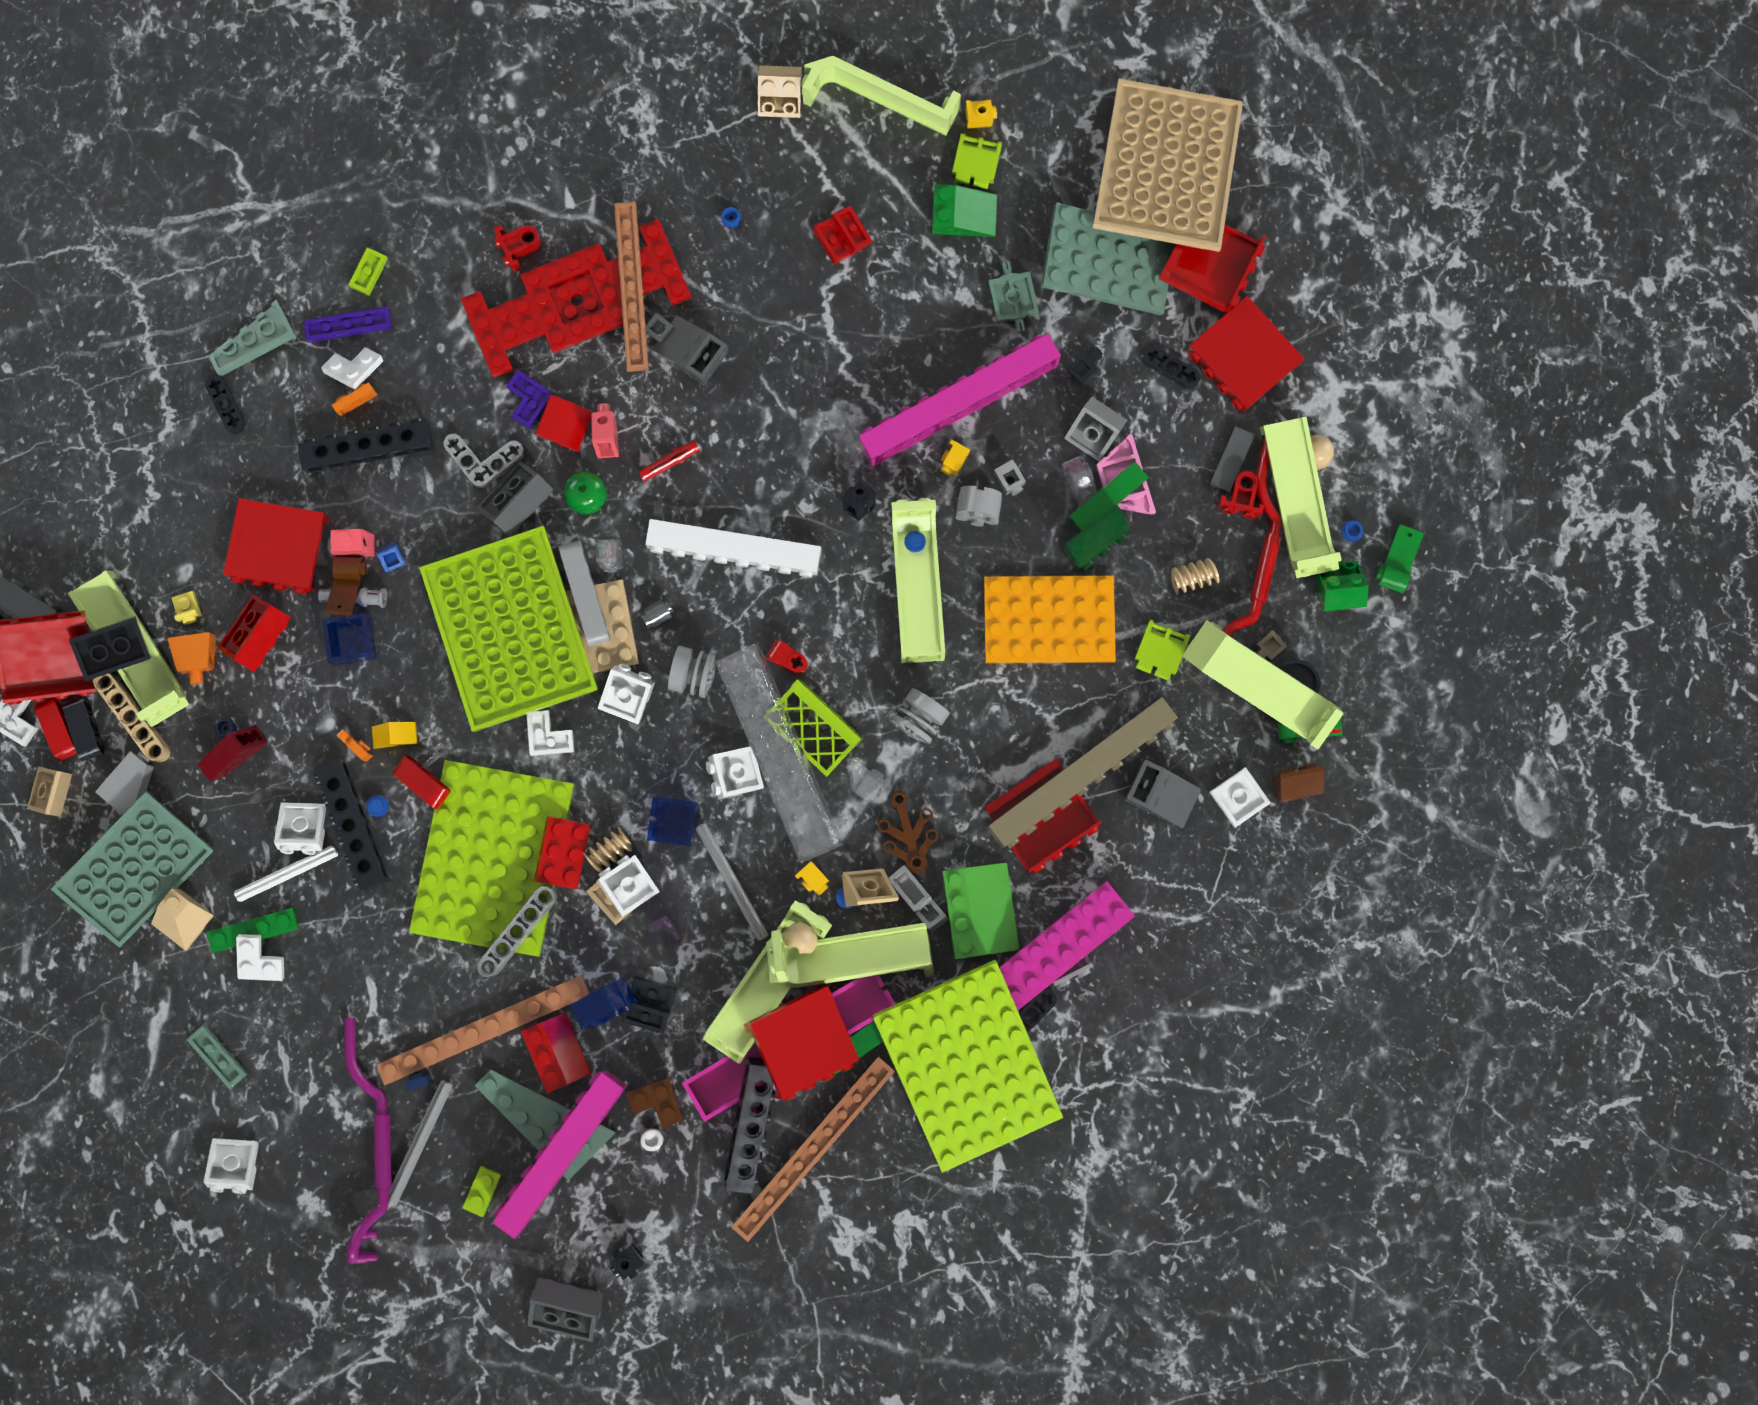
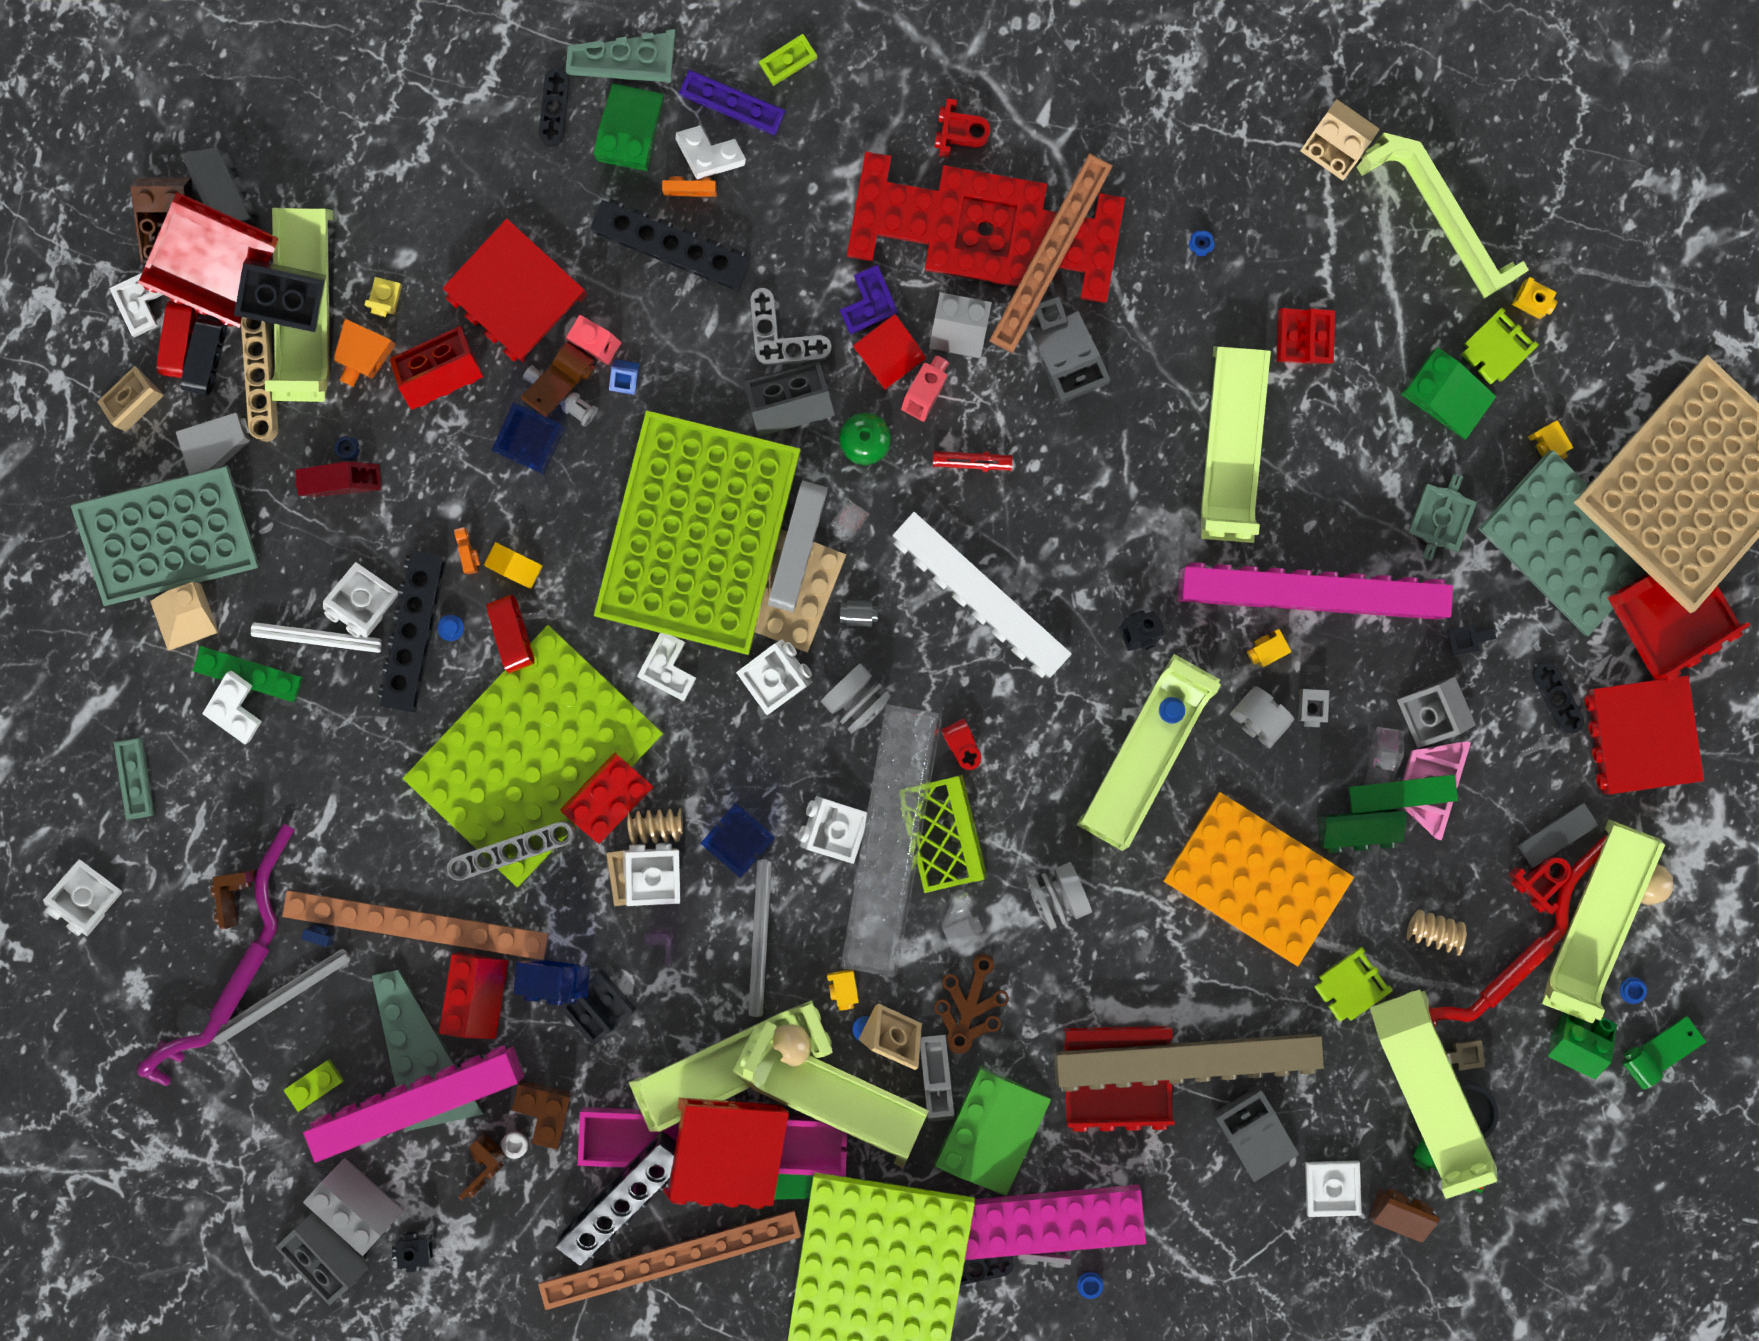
camera: 40 degrees right, 5 degrees up
(286, 386) = (628, 127): none -> green slope
(328, 1091) = (223, 891): none -> reddish brown bracket
(564, 1258) = (353, 1206): none -> light grey slope
(601, 374) = (960, 325): none -> light grey slope
(632, 1156) = (484, 1151): none -> reddish brown bracket
(840, 335) = (1234, 444): none -> yellowish green panel
(1051, 196) = (1552, 438): none -> yellow brick
(1117, 974) = (1090, 1285): none -> blue plate

